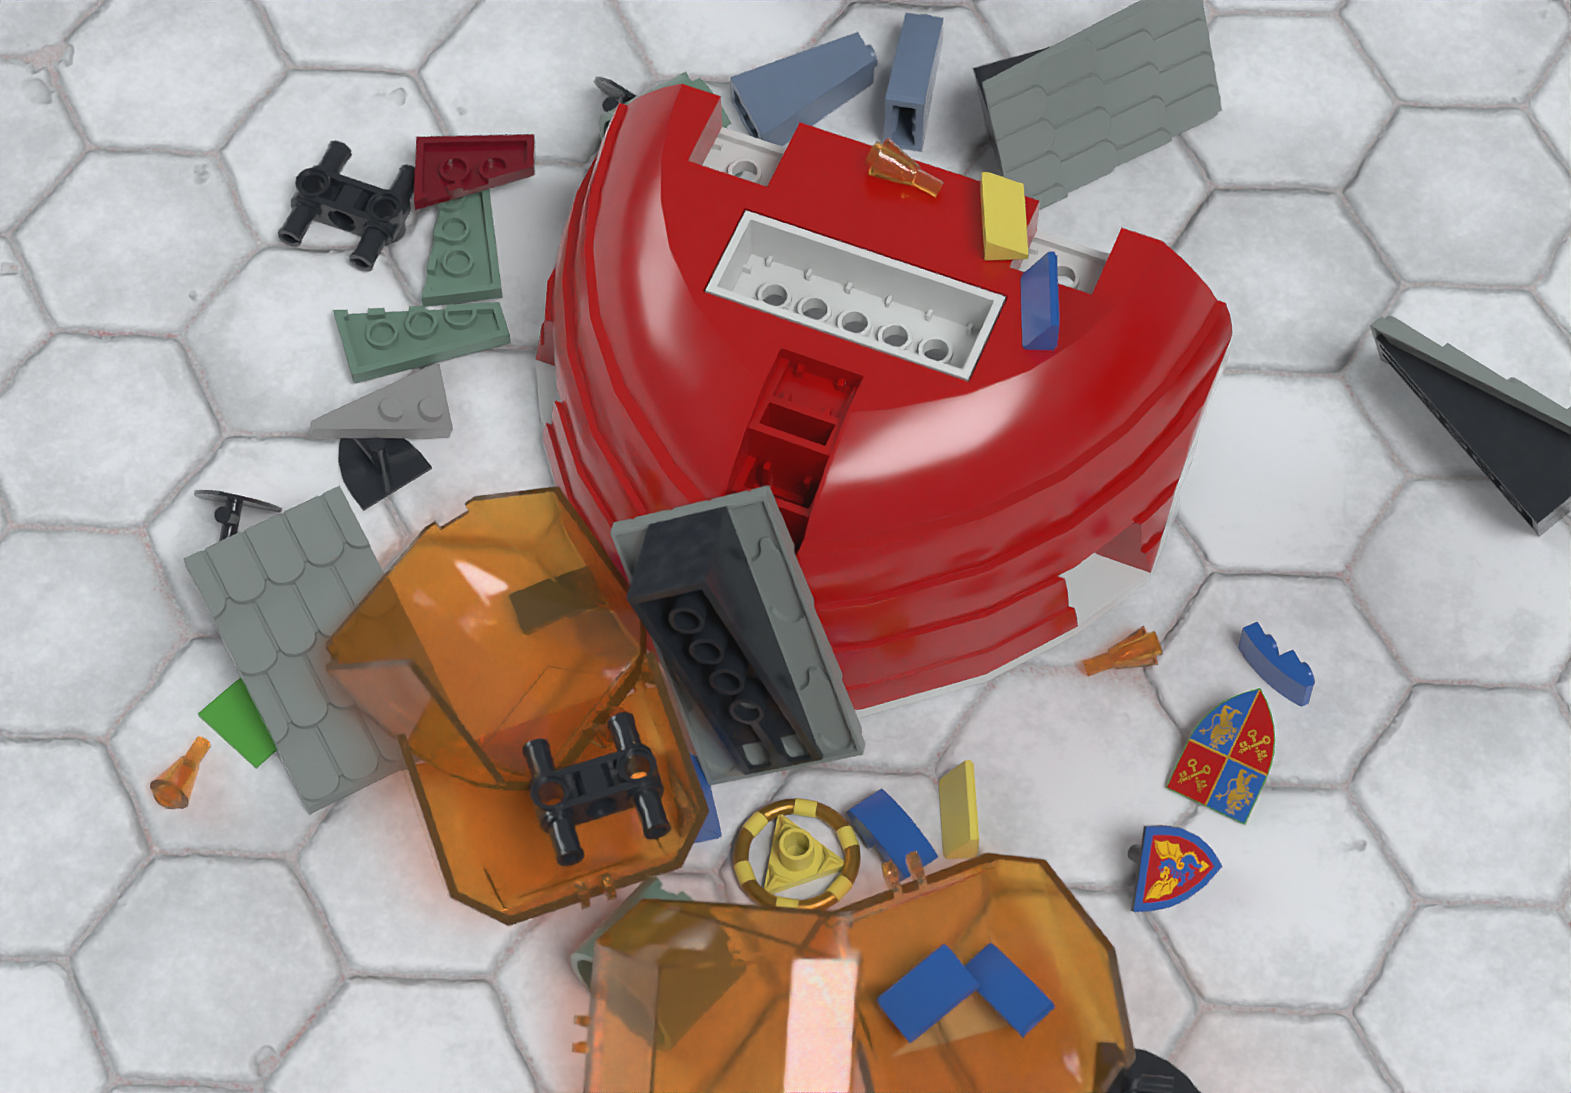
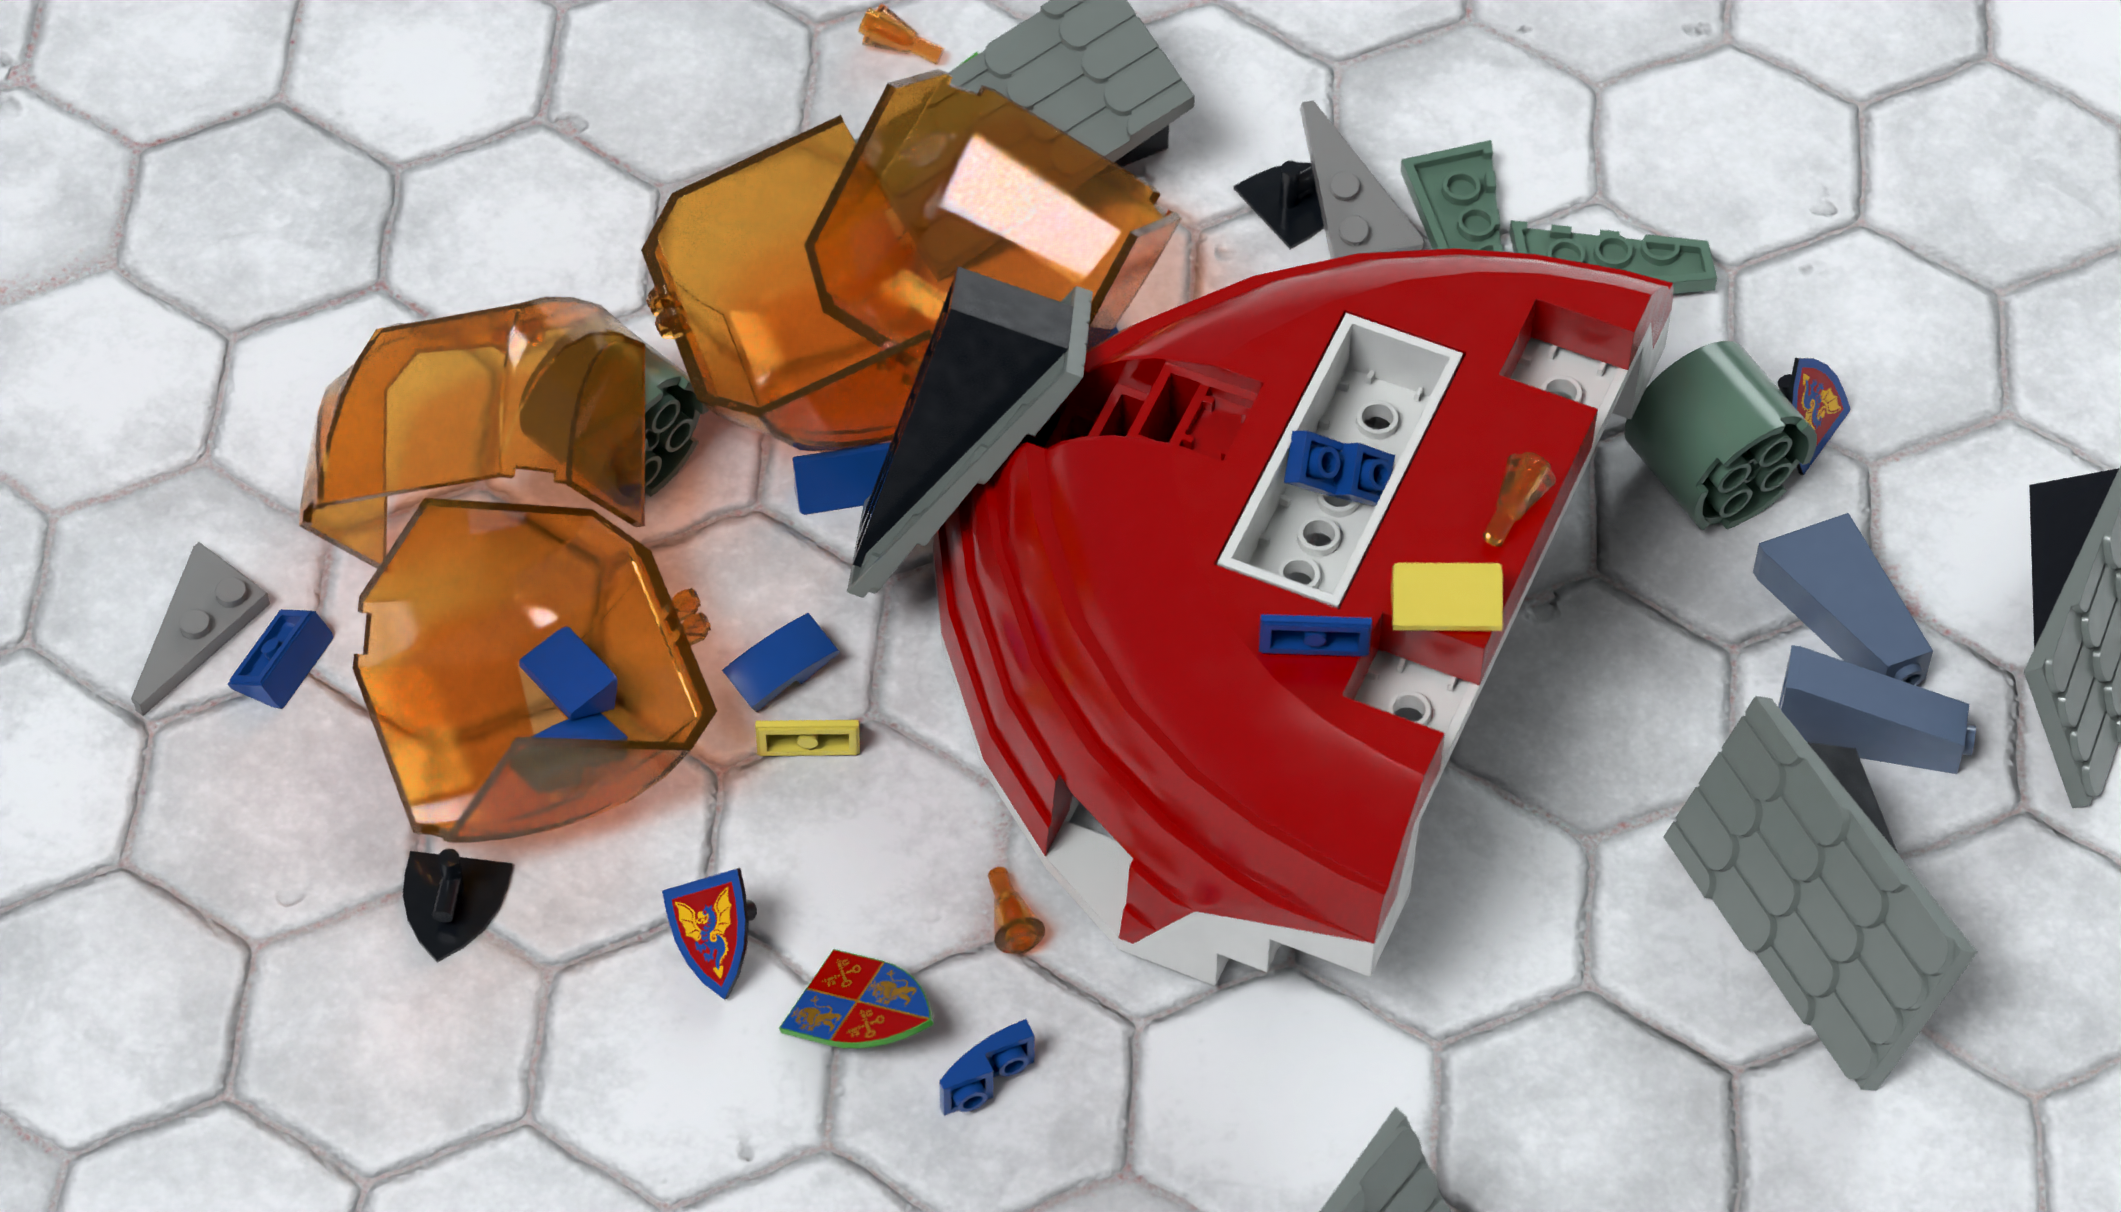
camera: 90 degrees right, 5 degrees down
(230, 514) = (1221, 49): black shield -> none
(349, 206) = (1634, 177): black piece -> none
(469, 164) = (1695, 250): dark red wing -> none
(596, 789) = (799, 310): black piece -> none
(797, 855) = (765, 575): light yellow piece -> none
(849, 305) = (1338, 468): none -> blue slope

